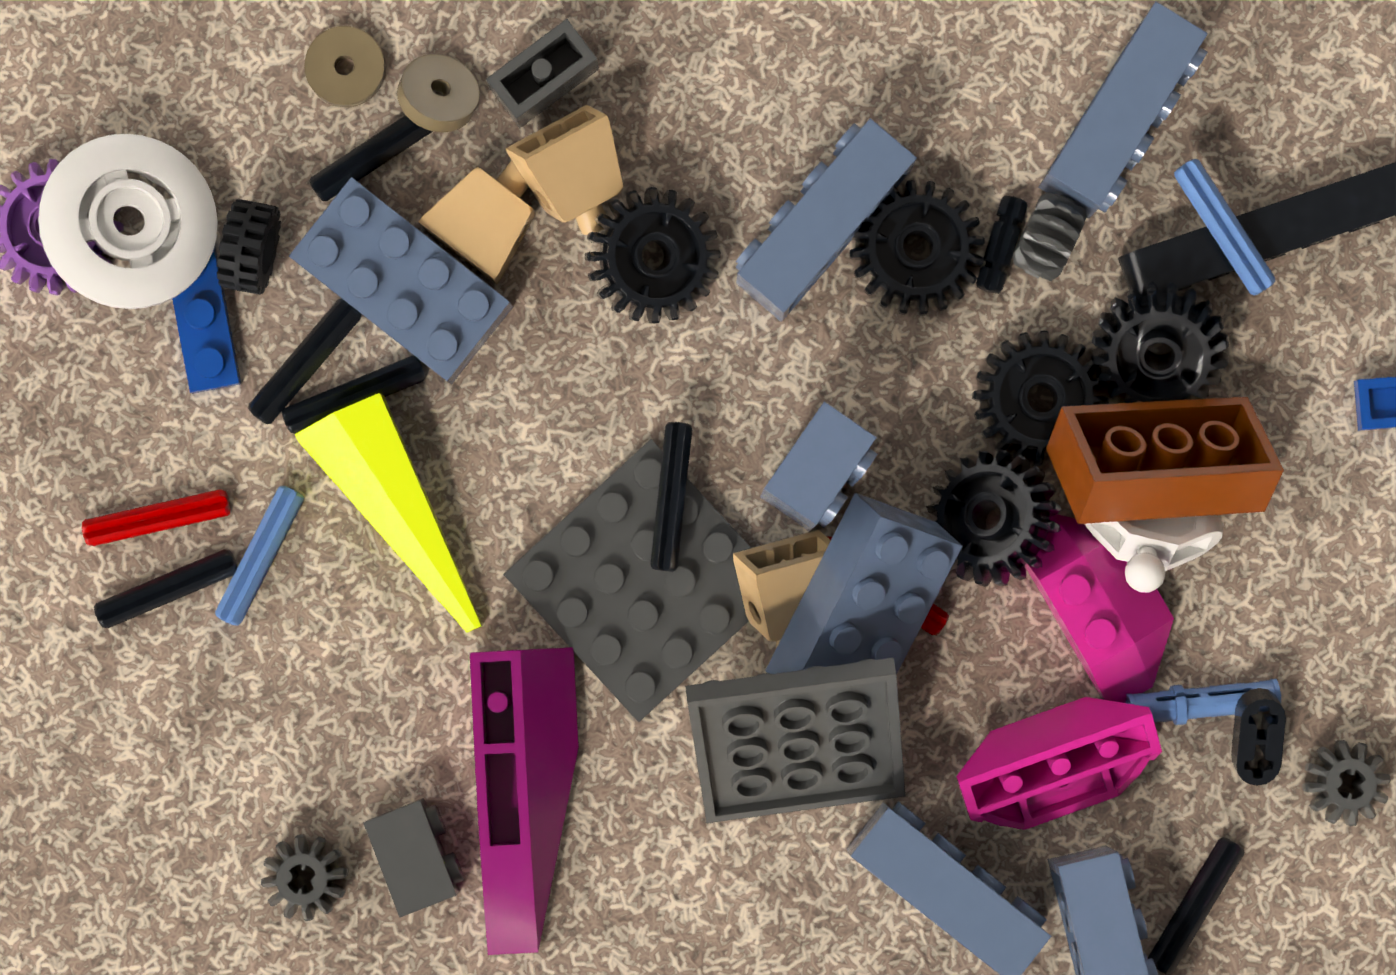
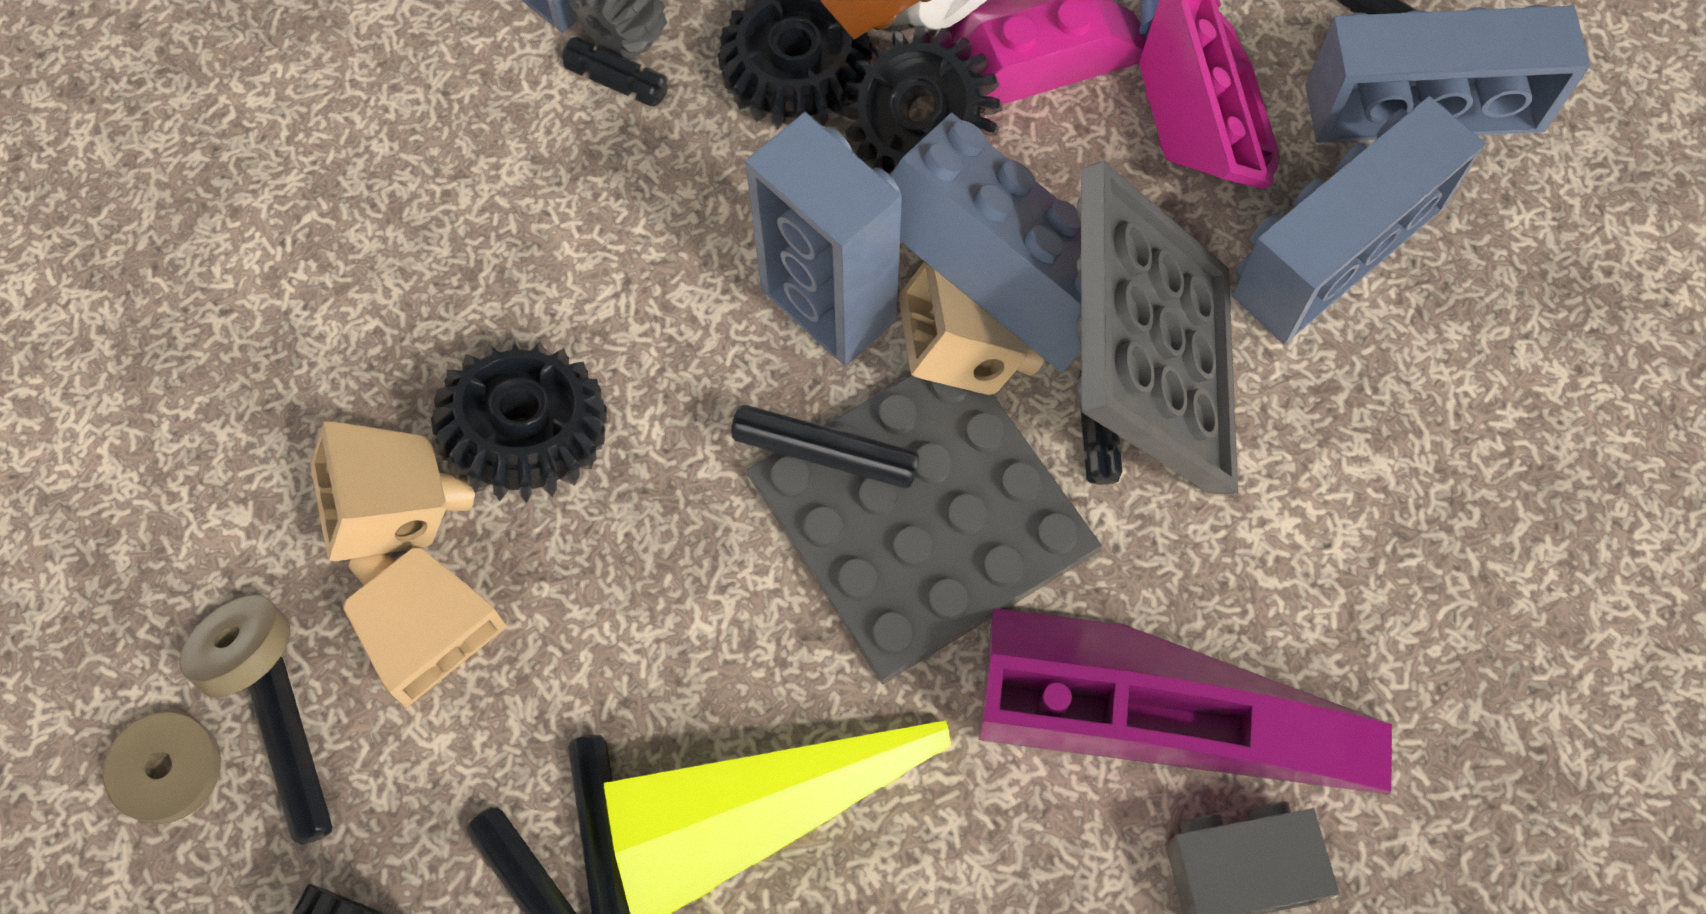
camera: 80 degrees left, 20 degrees down
(401, 280) = (460, 739): sand blue brick -> none
(543, 73) = (252, 507): dark grey brick -> none
(823, 222) = (532, 218): sand blue brick -> none
(912, 278) = (563, 126): black gear -> none

